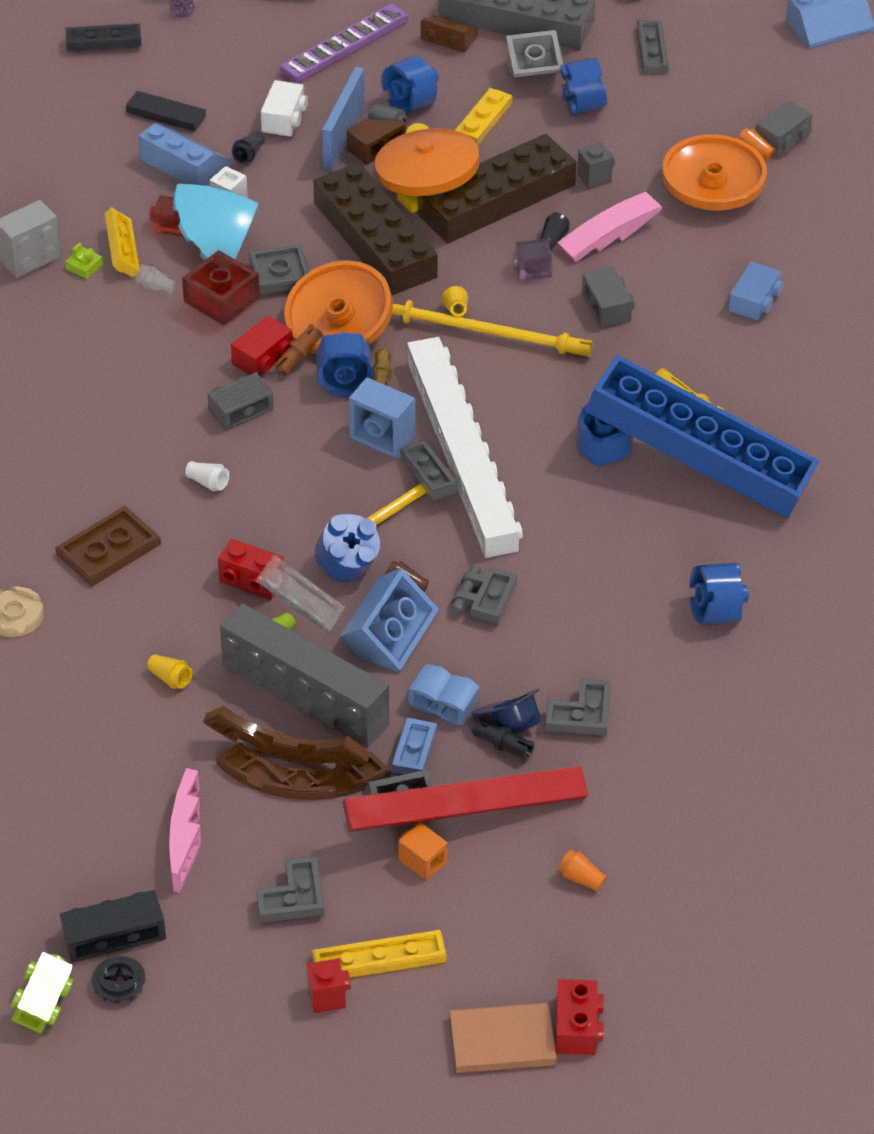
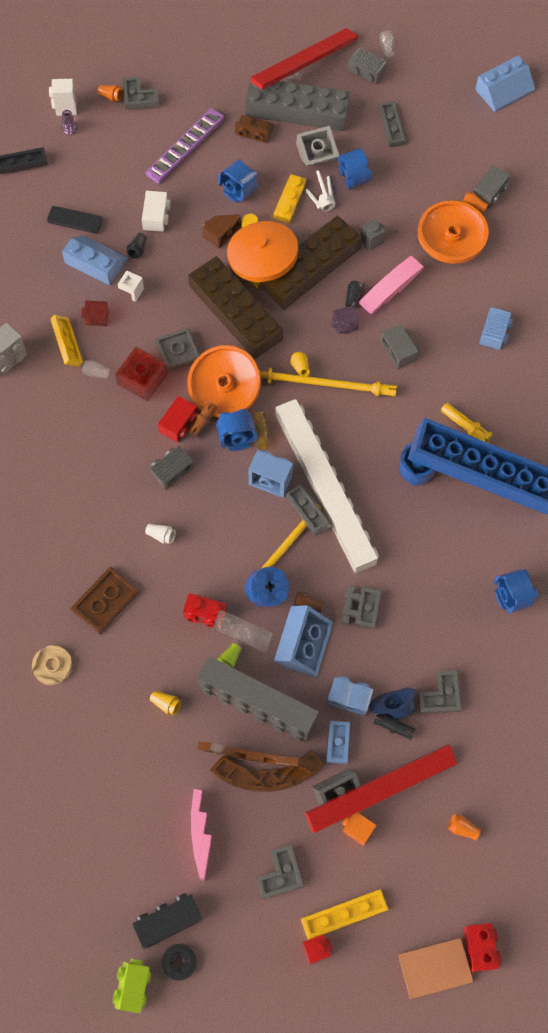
camera: 10 degrees left, 20 degrees up
(83, 261) = (43, 359): lime tile -> none
(213, 218) = (126, 317): medium azure brick -> none
(342, 117) = (198, 217): medium blue tile -> none
(386, 112) = (225, 208): dark grey brick -> none
(534, 123) = (326, 200): none -> white plant

